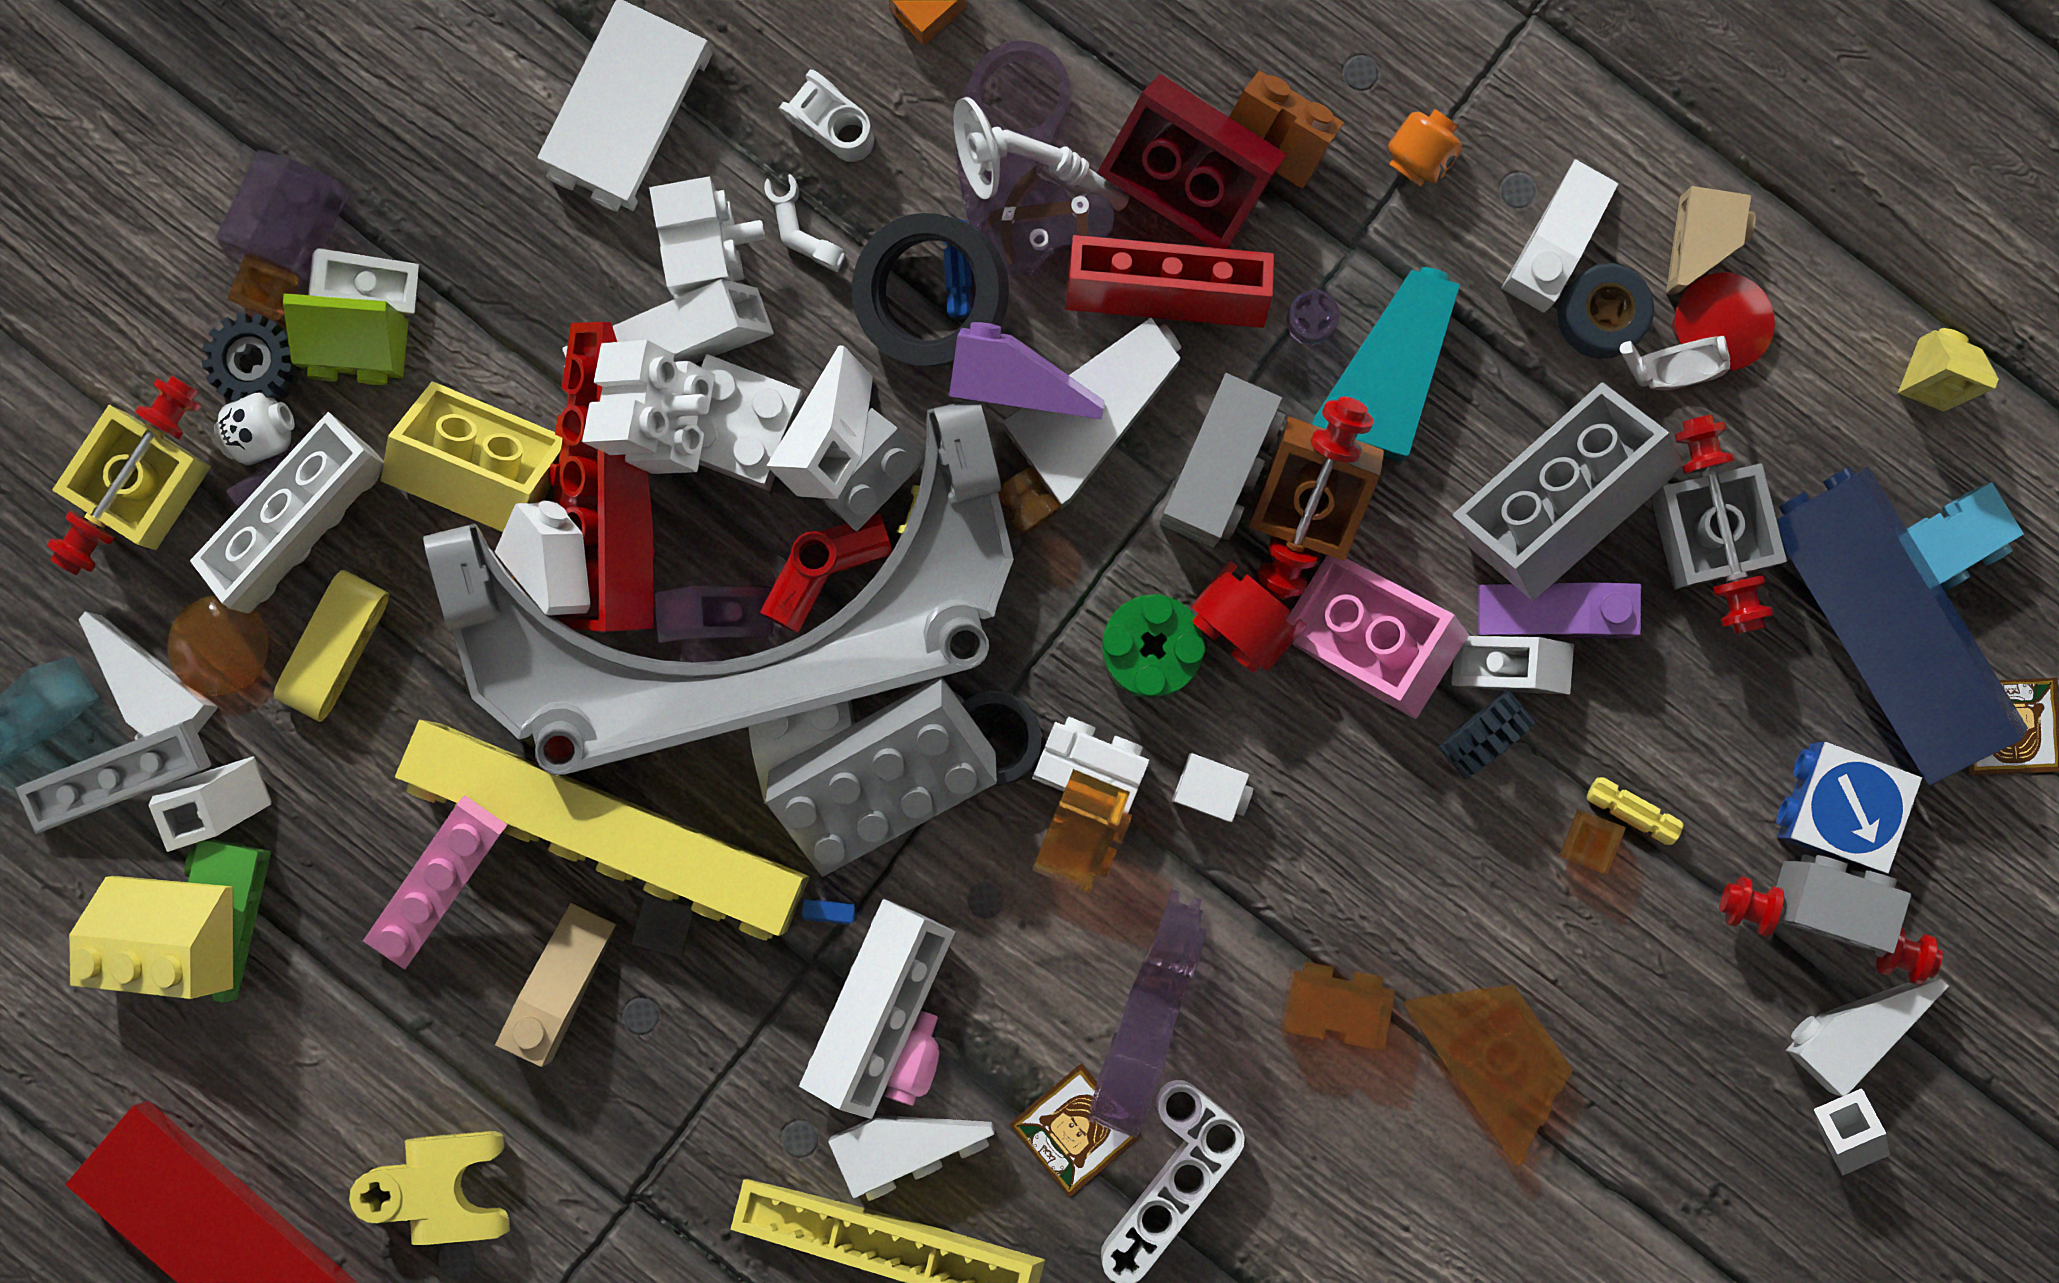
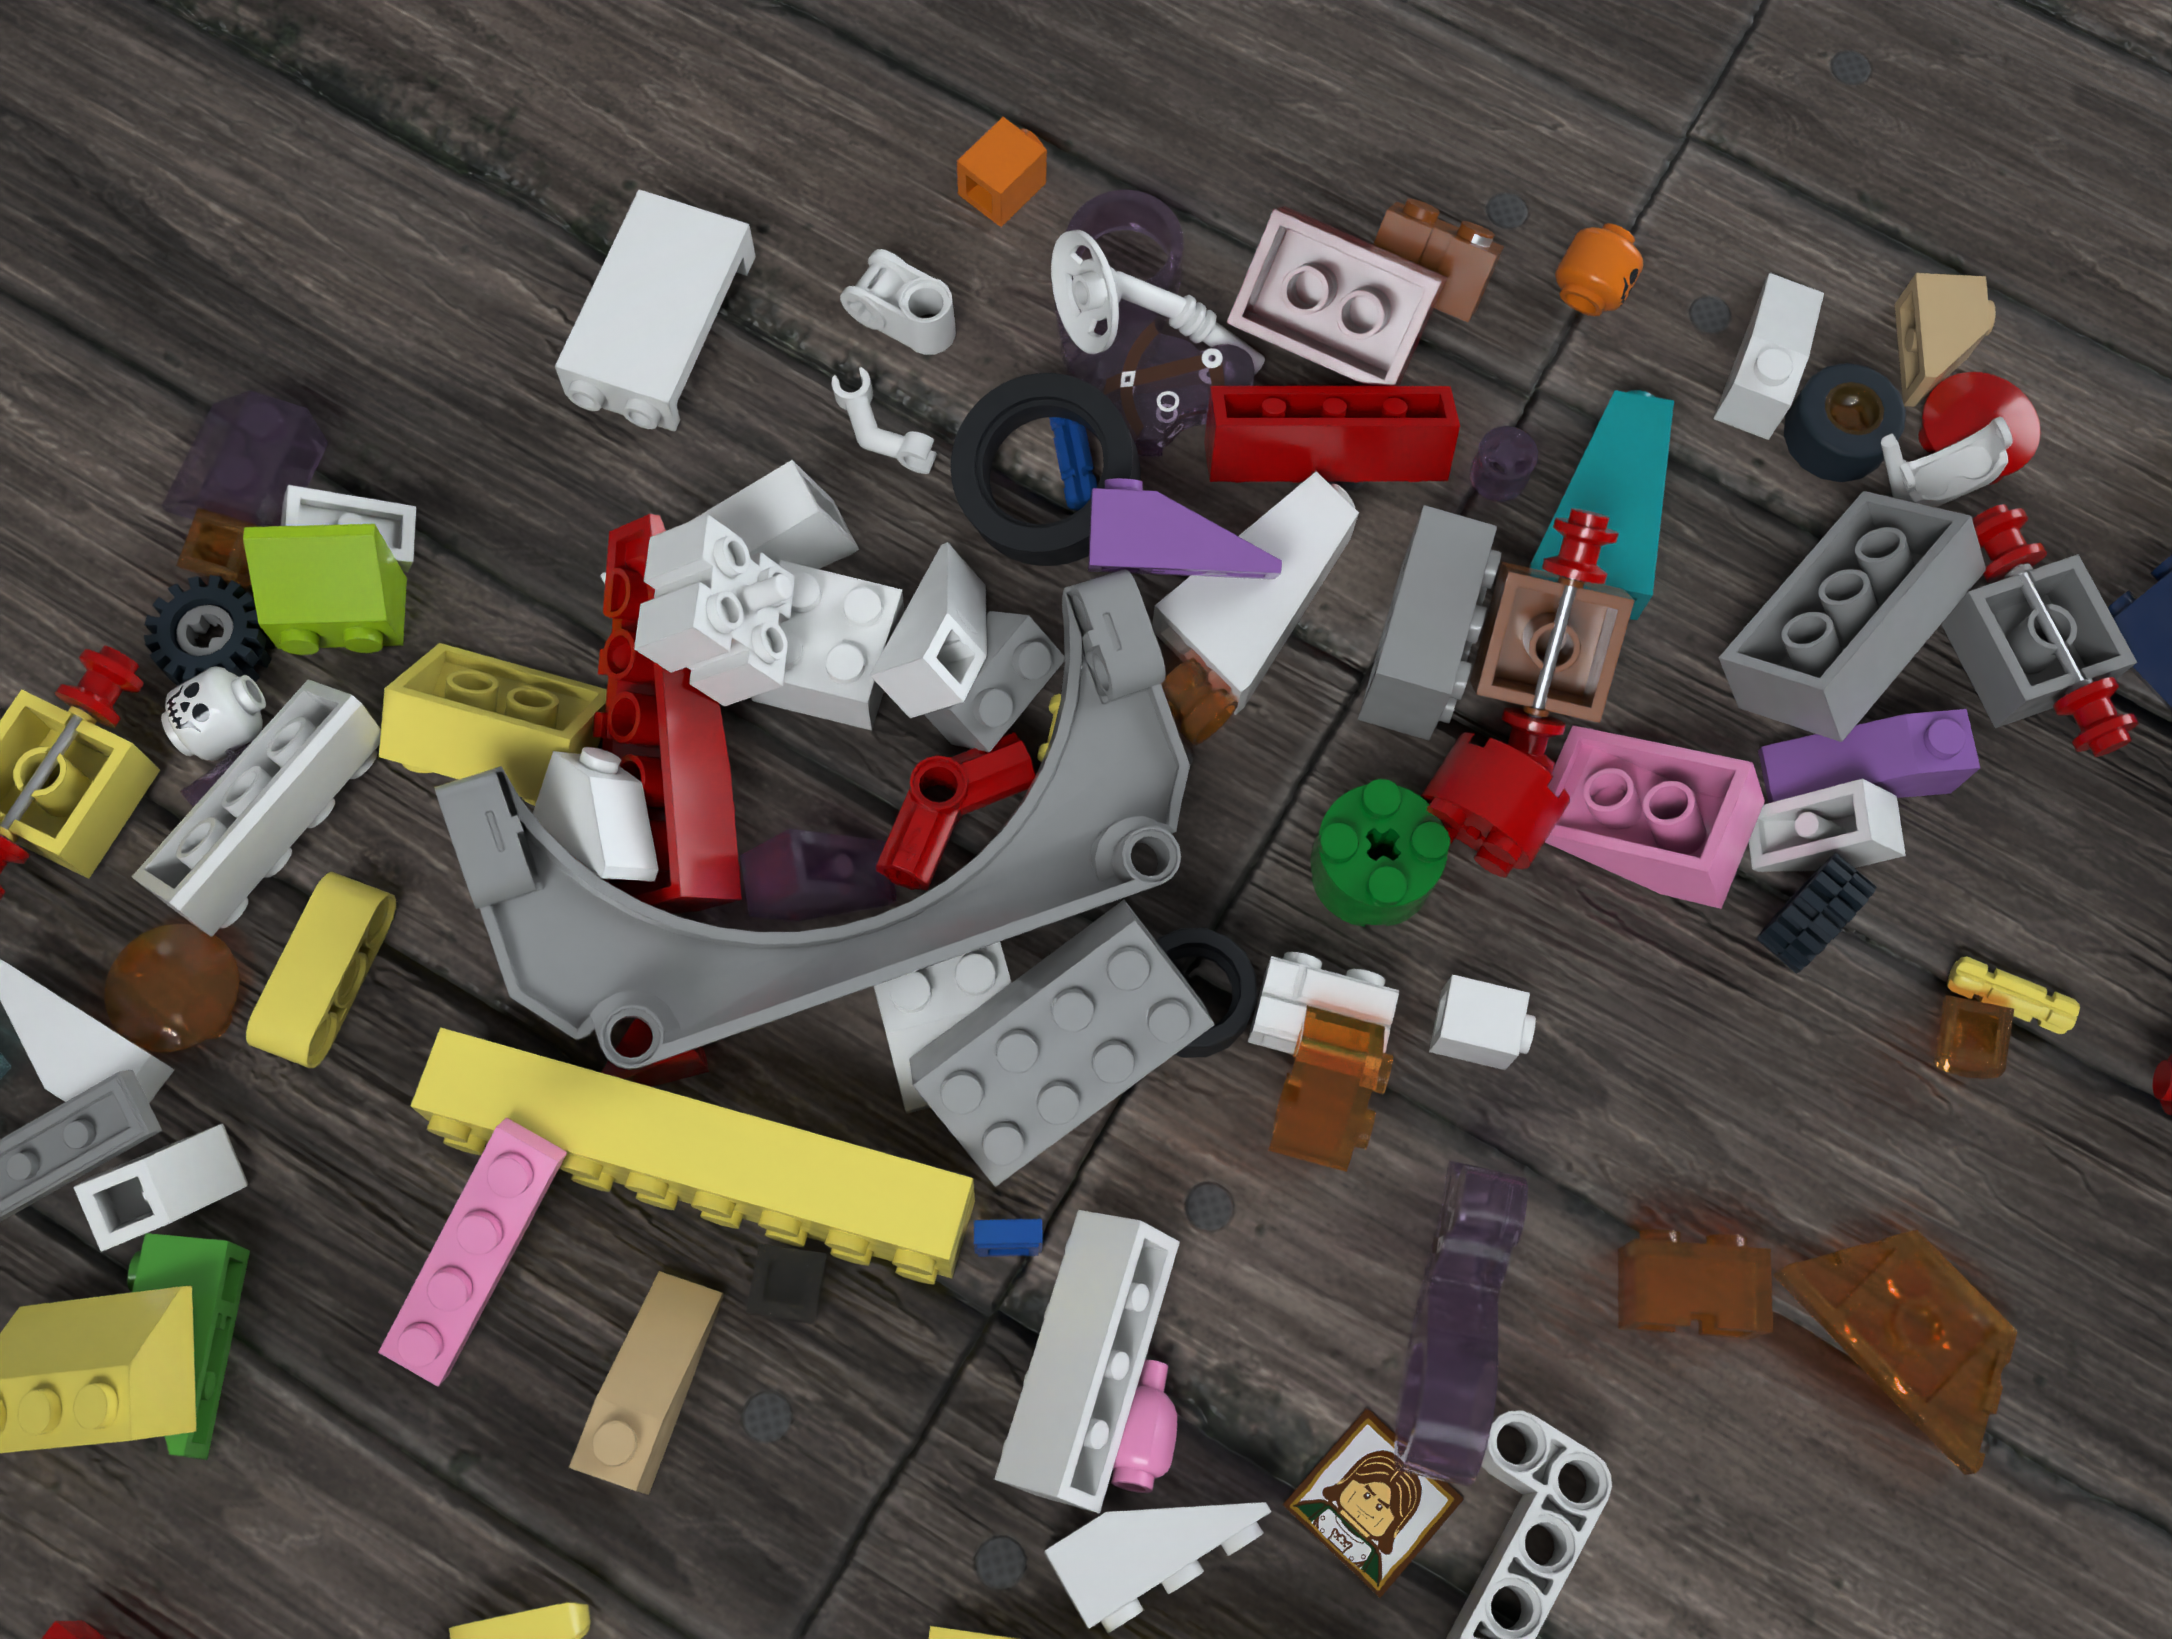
camera: 10 degrees left, 15 degrees down
(699, 235) = (756, 418): white brick -> none

